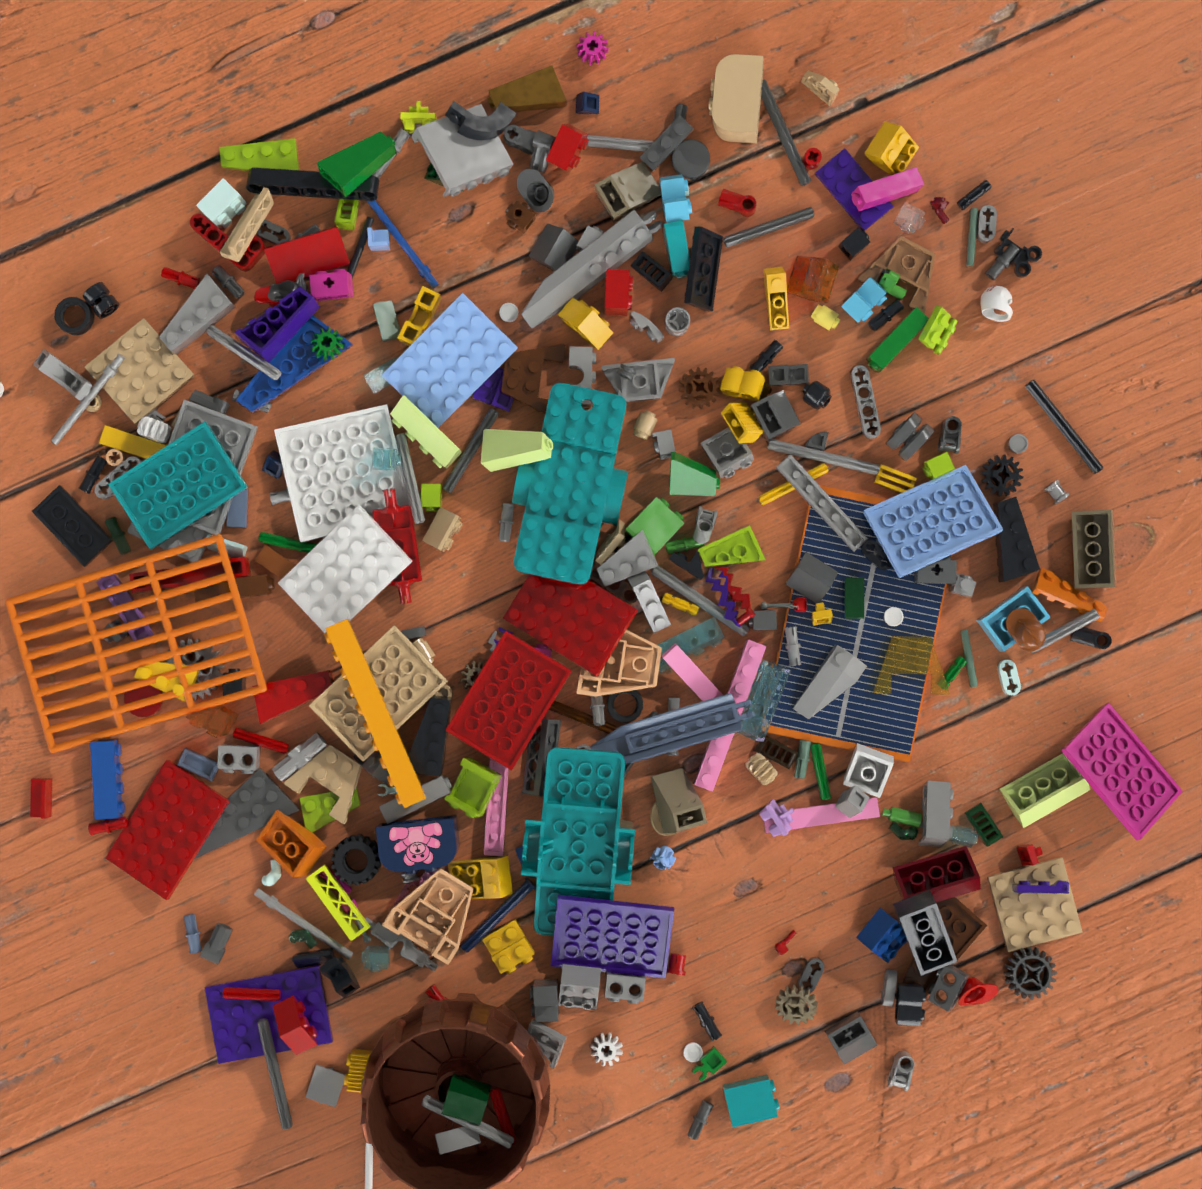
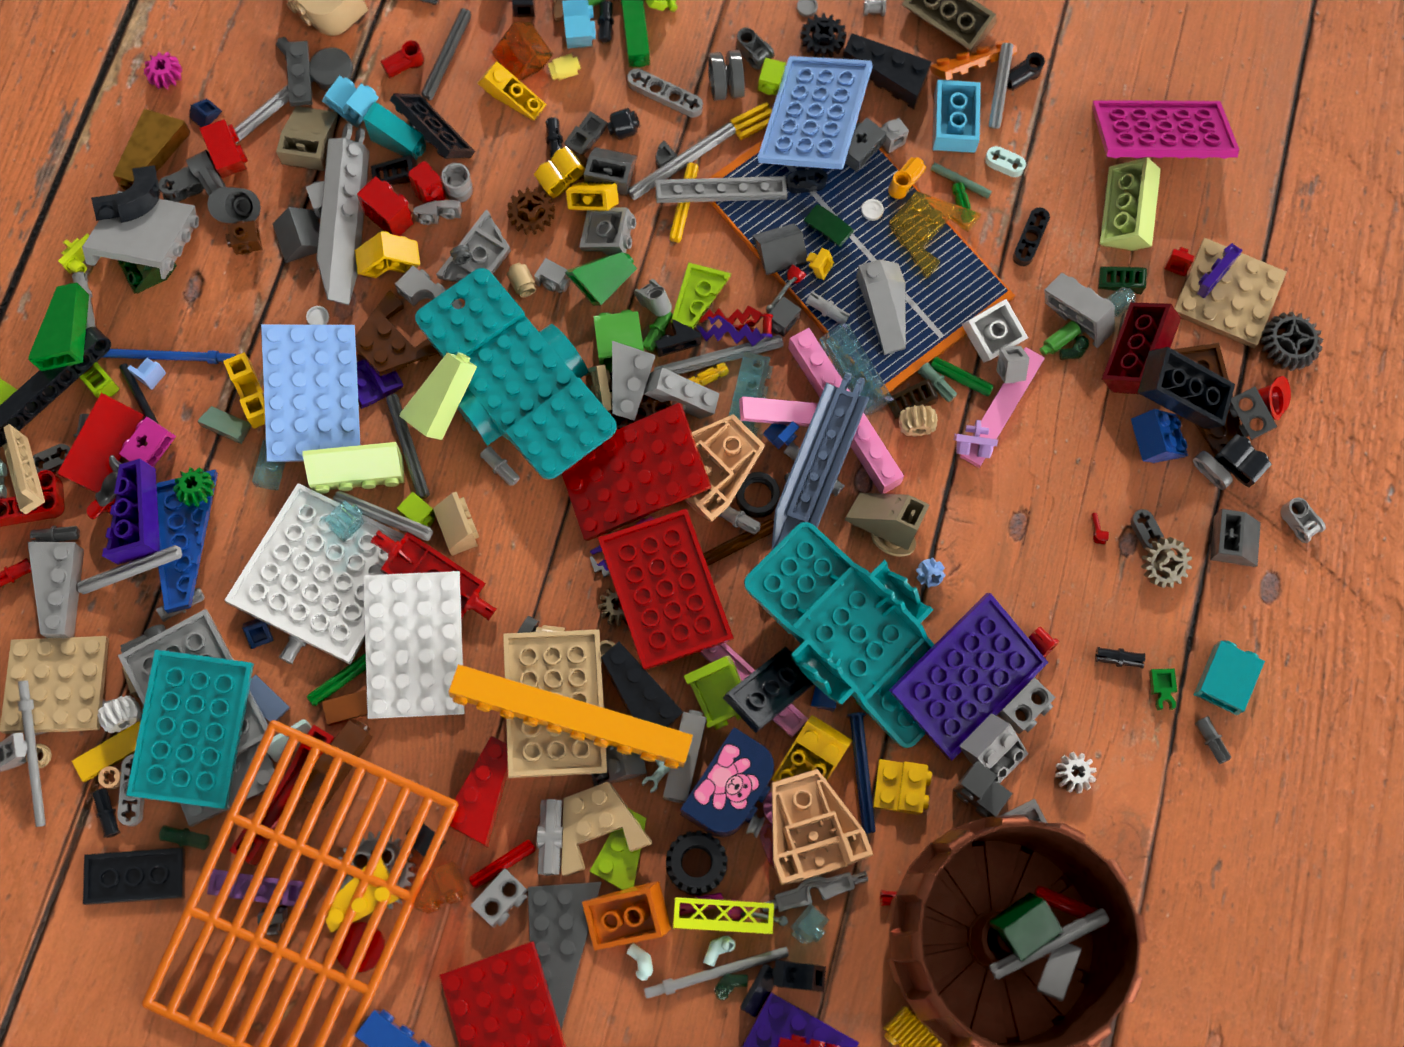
camera: 50 degrees left, 15 degrees down
(198, 764) = (471, 946): sand blue tile -> none
(319, 912) = (717, 947): none -> light aqua arm
(497, 817) = (768, 690): none -> black tile
(547, 739) = (735, 590): dark grey fence -> none
(656, 305) = (426, 183): none -> red brick
(678, 687) = (780, 434): none -> blue bracket
(693, 1052) = (1140, 696): white piece -> none
(939, 621) = (906, 177): none -> light orange piece
(977, 730) = (1032, 245): none -> black beam
(1025, 629) = (975, 108): dark orange piece -> none

